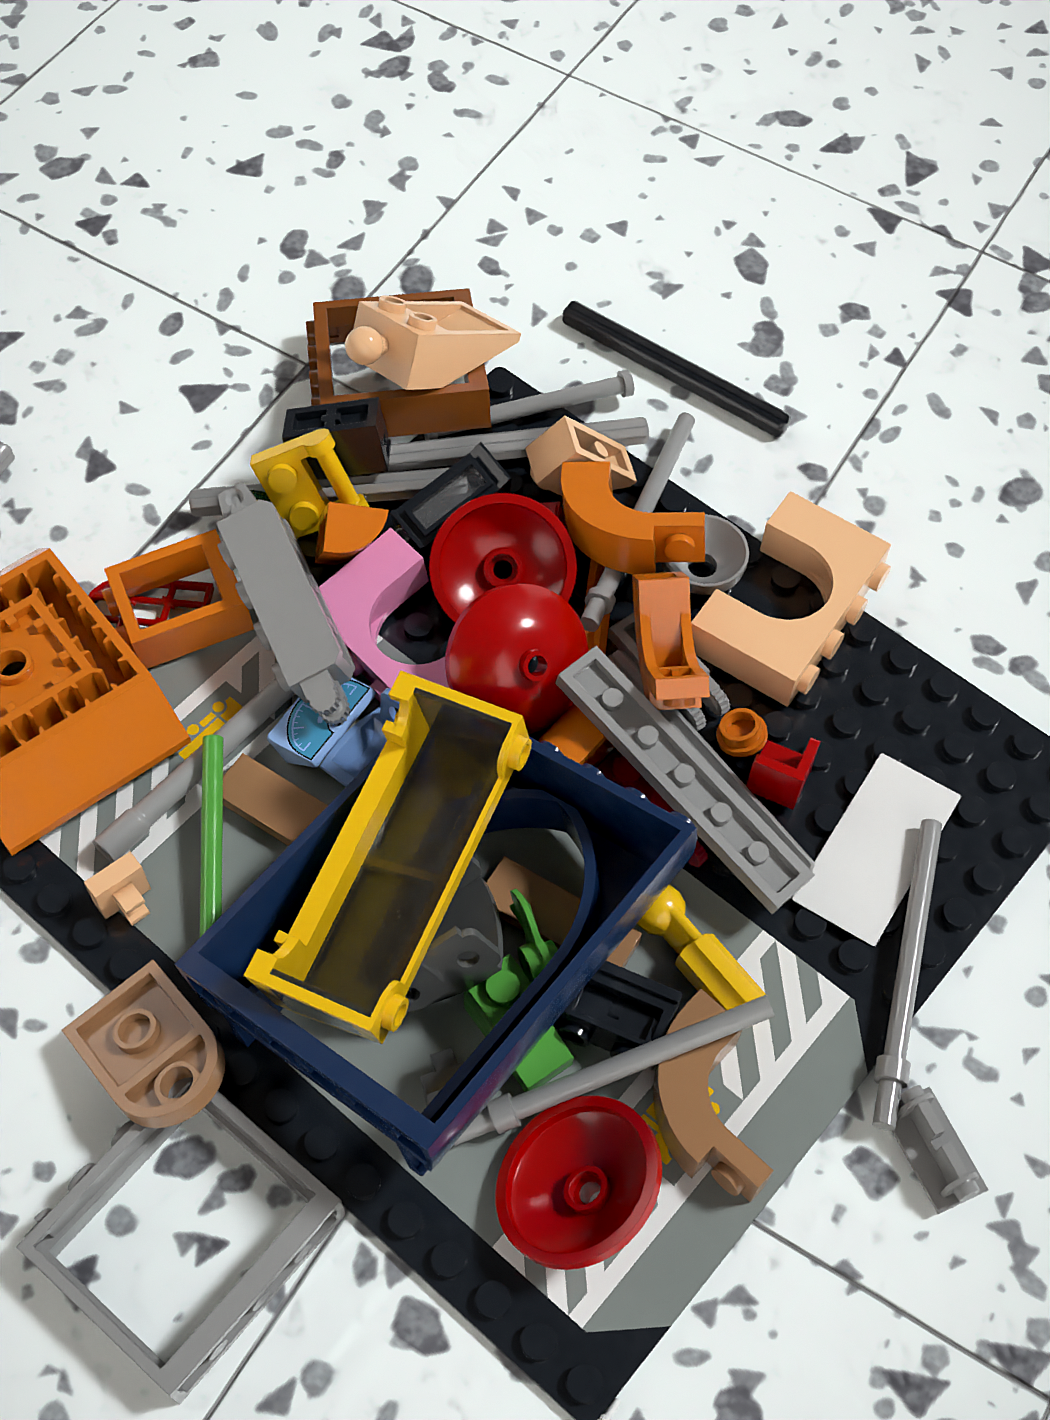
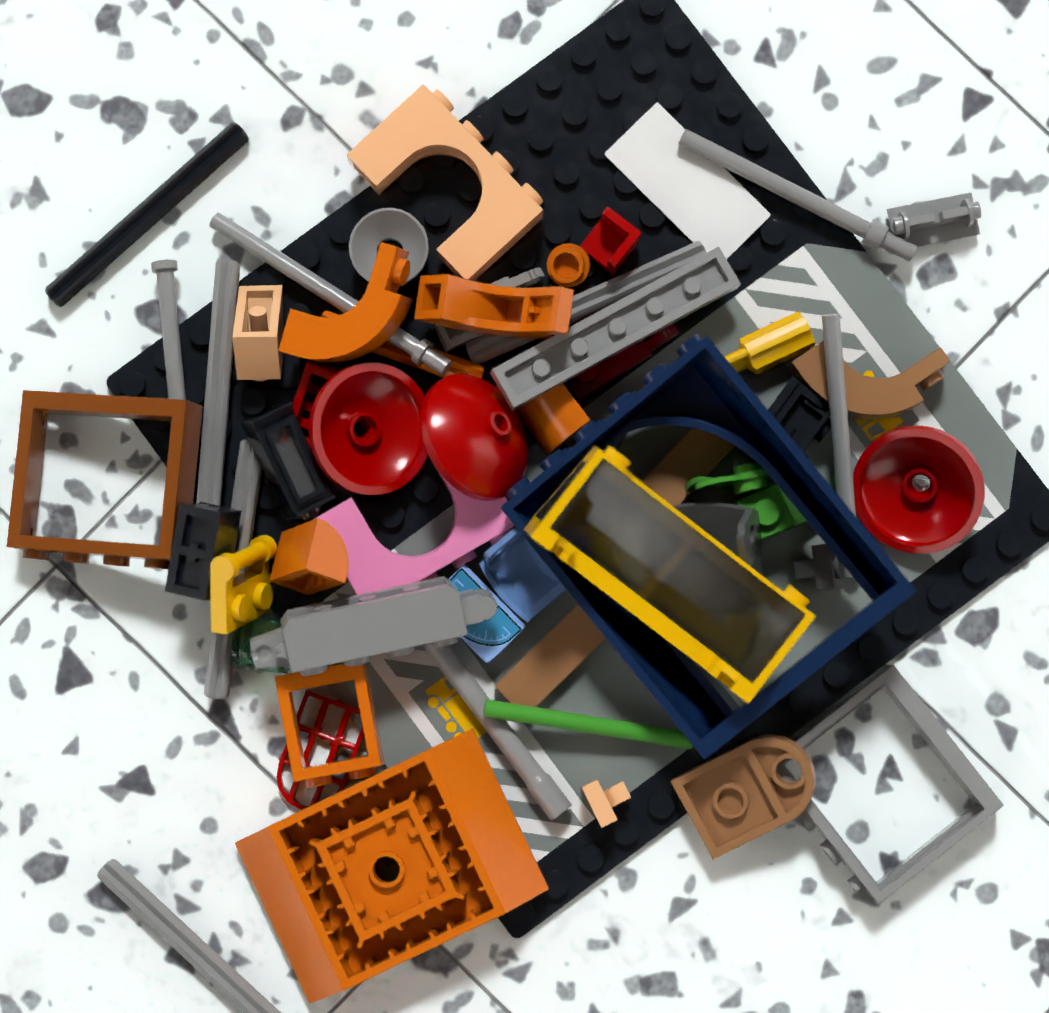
camera: 75 degrees left, 25 degrees up
(425, 340) = (117, 444): light nougat slope -> none

